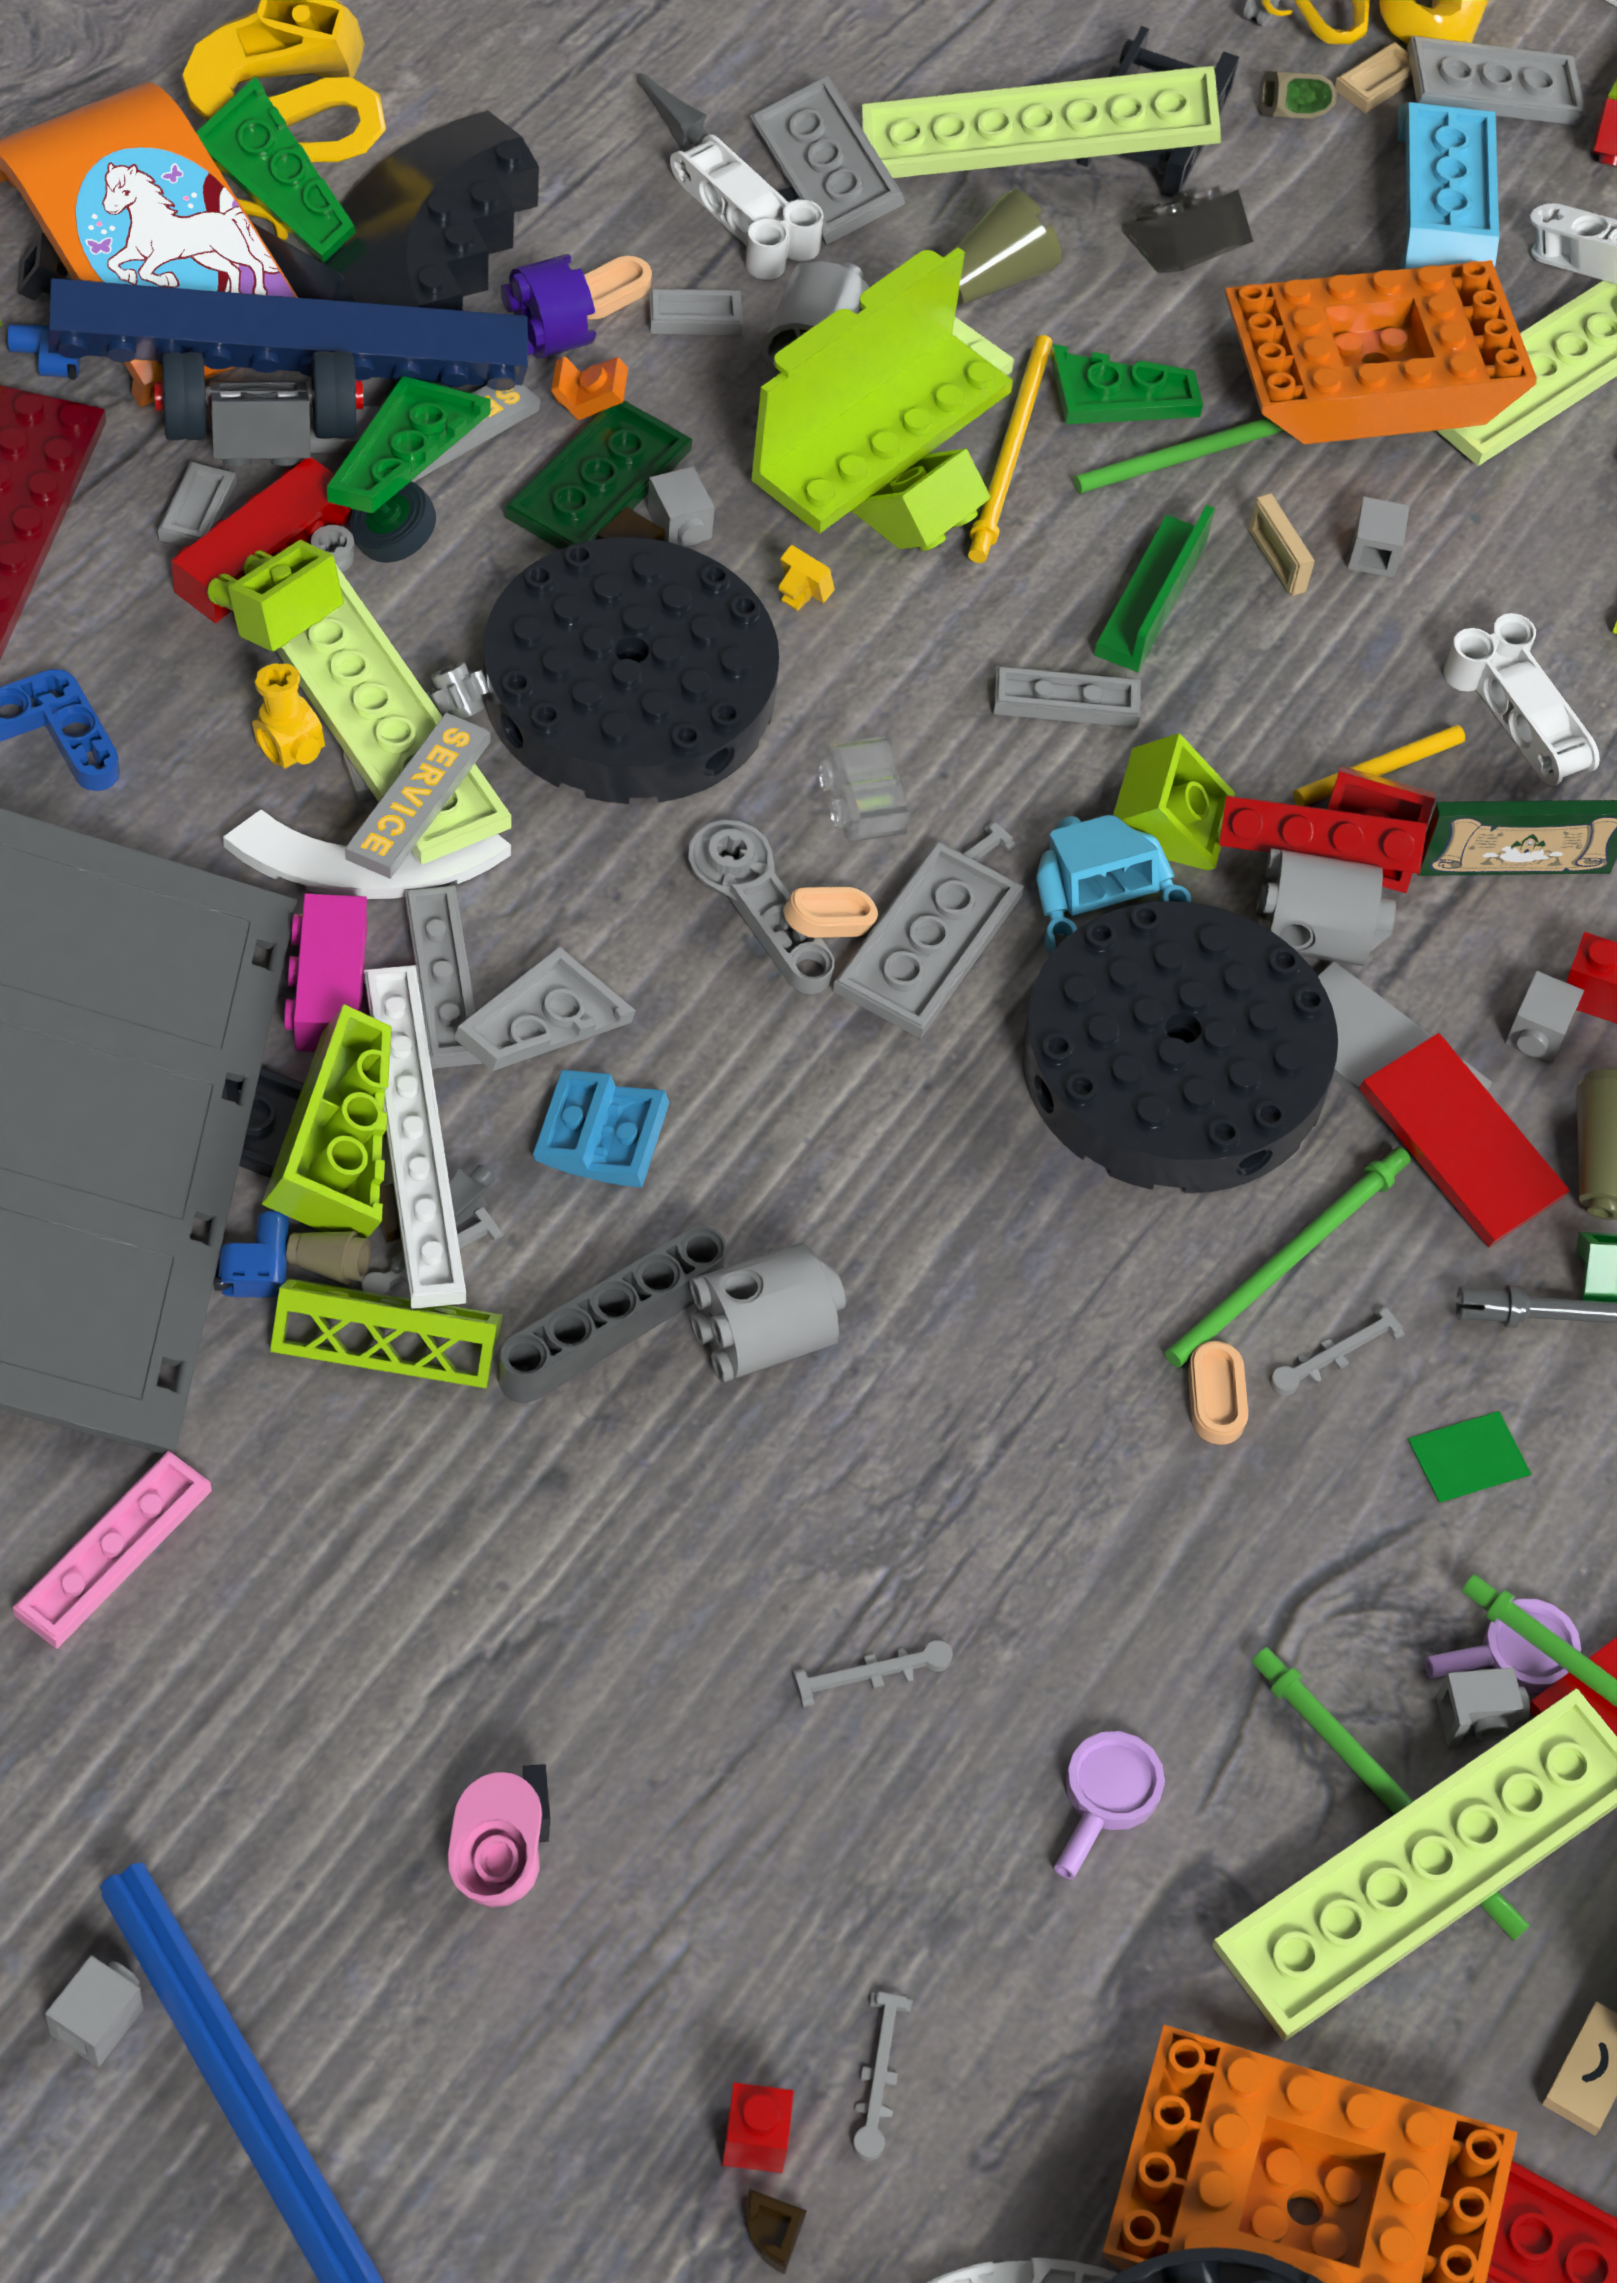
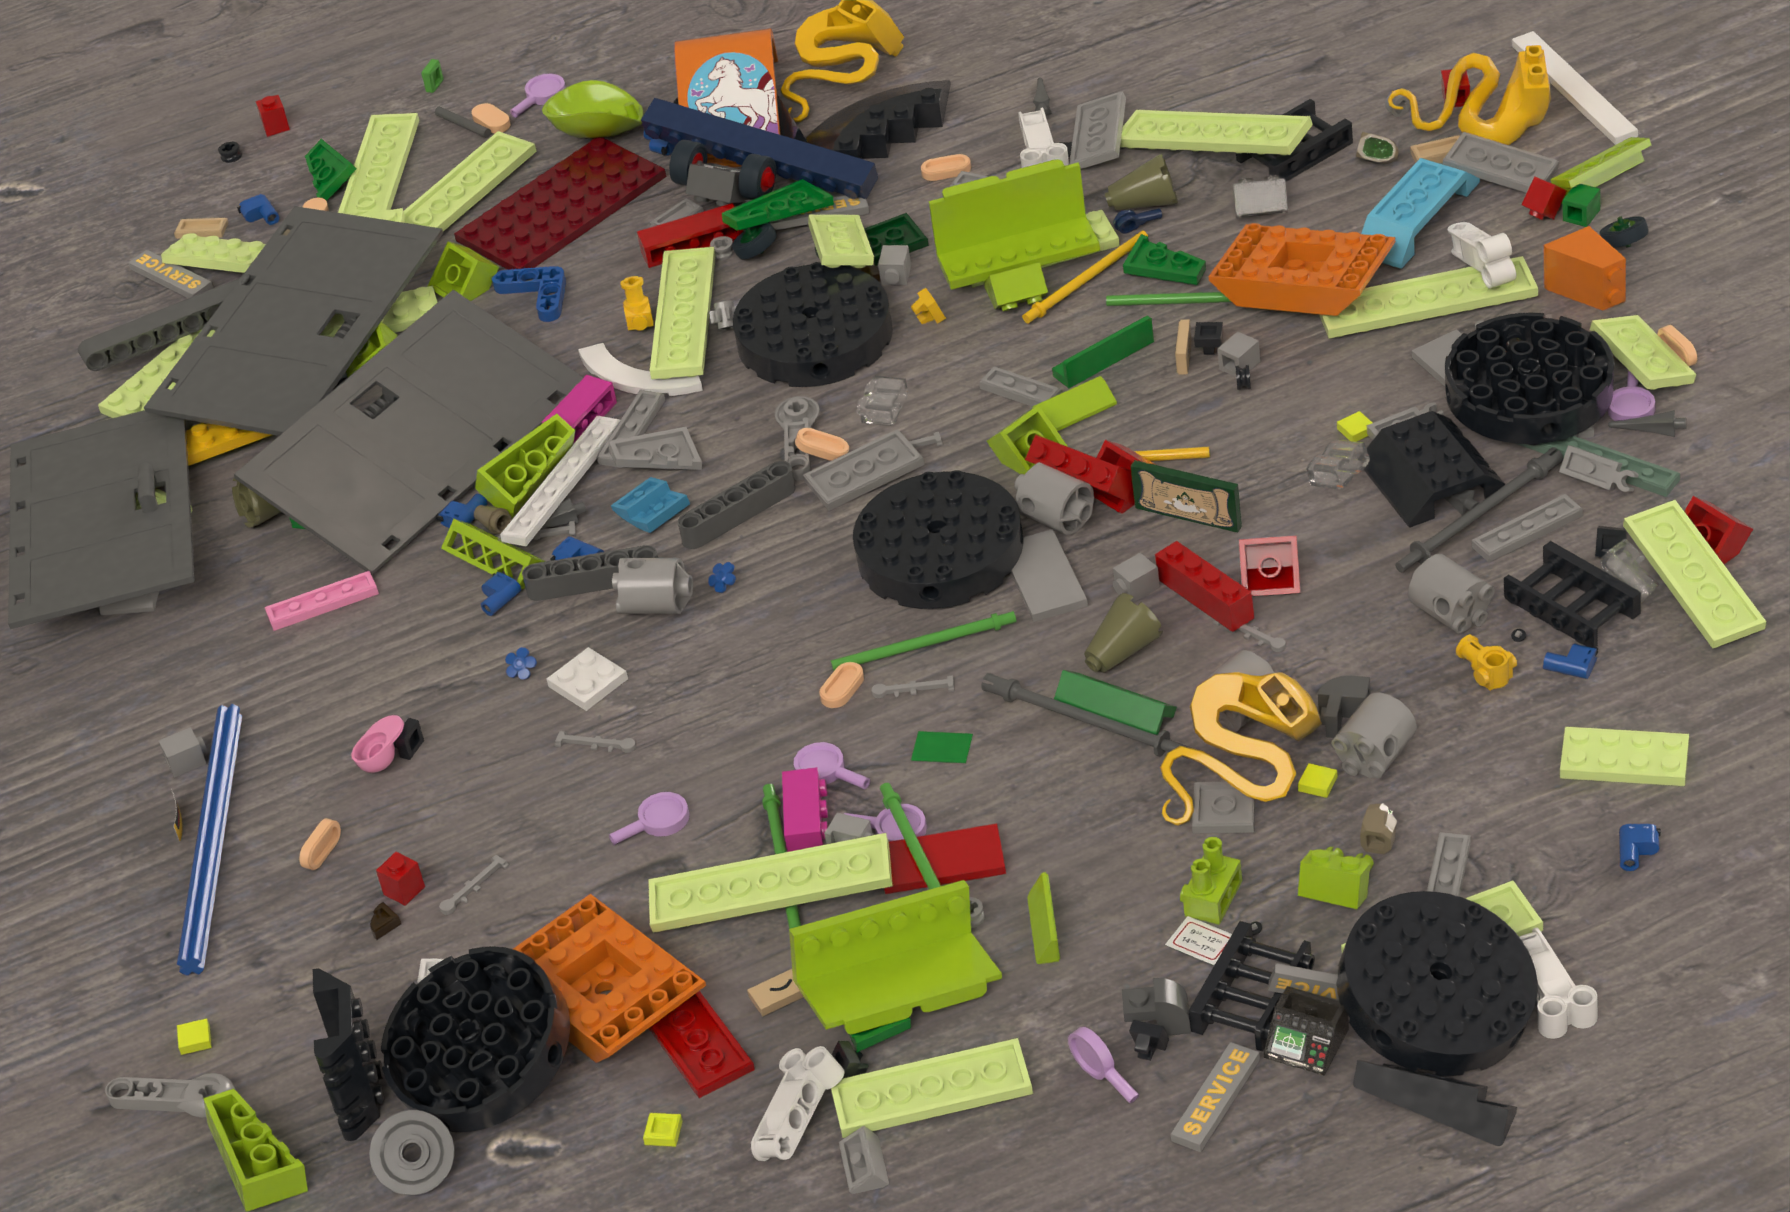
camera: 45 degrees right, 15 degrees down
(171, 2138) = (178, 825): none -> sticker
(265, 160) = (811, 79): green wing -> none
(280, 594) = (668, 253): lime brick -> none
(417, 795) = (664, 347): light grey tile -> none
(459, 1404) = (500, 591): none -> blue piece
(537, 1272) = (572, 548): none -> blue piece
(538, 2113) = (320, 844): none -> light nougat tile
(555, 304) = (896, 164): dark purple brick -> none
(577, 487) = (840, 240): none -> yellowish green plate
(590, 390) = (891, 206): orange bracket -> none
(619, 1556) = (519, 663): none -> blue plant
(761, 1541) = (587, 678): none -> white plate
(768, 1102) = (736, 504): none -> dark grey beam
(851, 1241) = (722, 576): none -> blue plant
(1006, 322) = (1128, 220): none -> dark blue plate
(1097, 867) = (964, 454): medium azure torso -> none
(1192, 698) = (1078, 403): none -> lime slope
(1308, 1572) = (829, 763): none -> lavender piece
(1311, 513) = (1208, 336): none -> black tile
(1366, 1683) = (804, 808): none -> dark pink brick
(1414, 577) = (1243, 377): none -> black bush
(1463, 1139) = (1047, 616): red tile -> none
(1521, 696) = (1251, 428): white piece -> none

